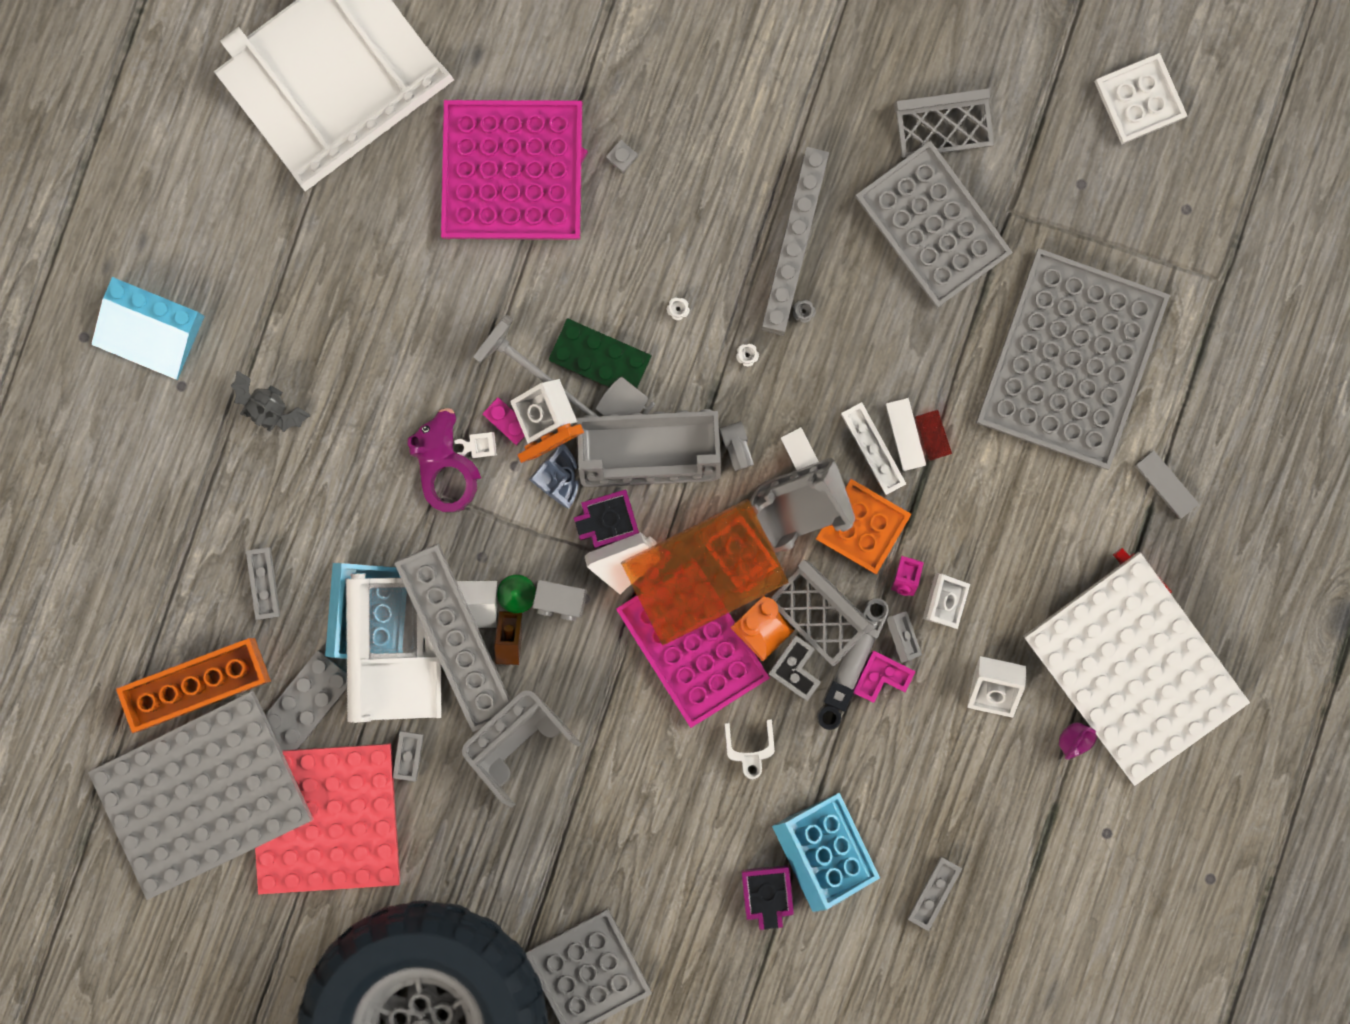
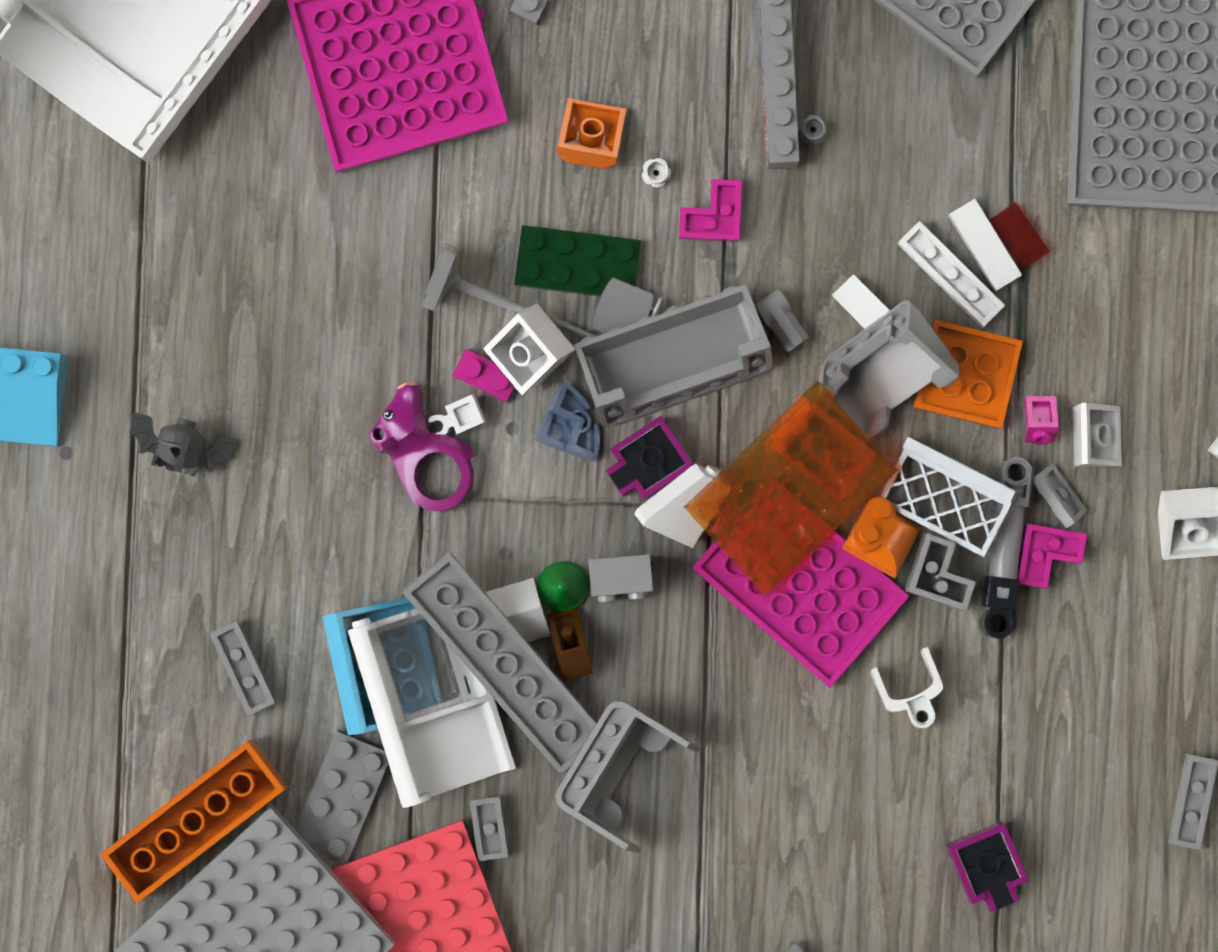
camera: 20 degrees left, 0 degrees up
(550, 442) = (549, 384): orange plate -> none
(638, 265) = (591, 133): none -> orange slope
(713, 358) = (718, 222): none -> dark pink plate
(742, 350) = (759, 196): white plate -> none
(826, 852) = (1044, 792): medium azure slope -> none

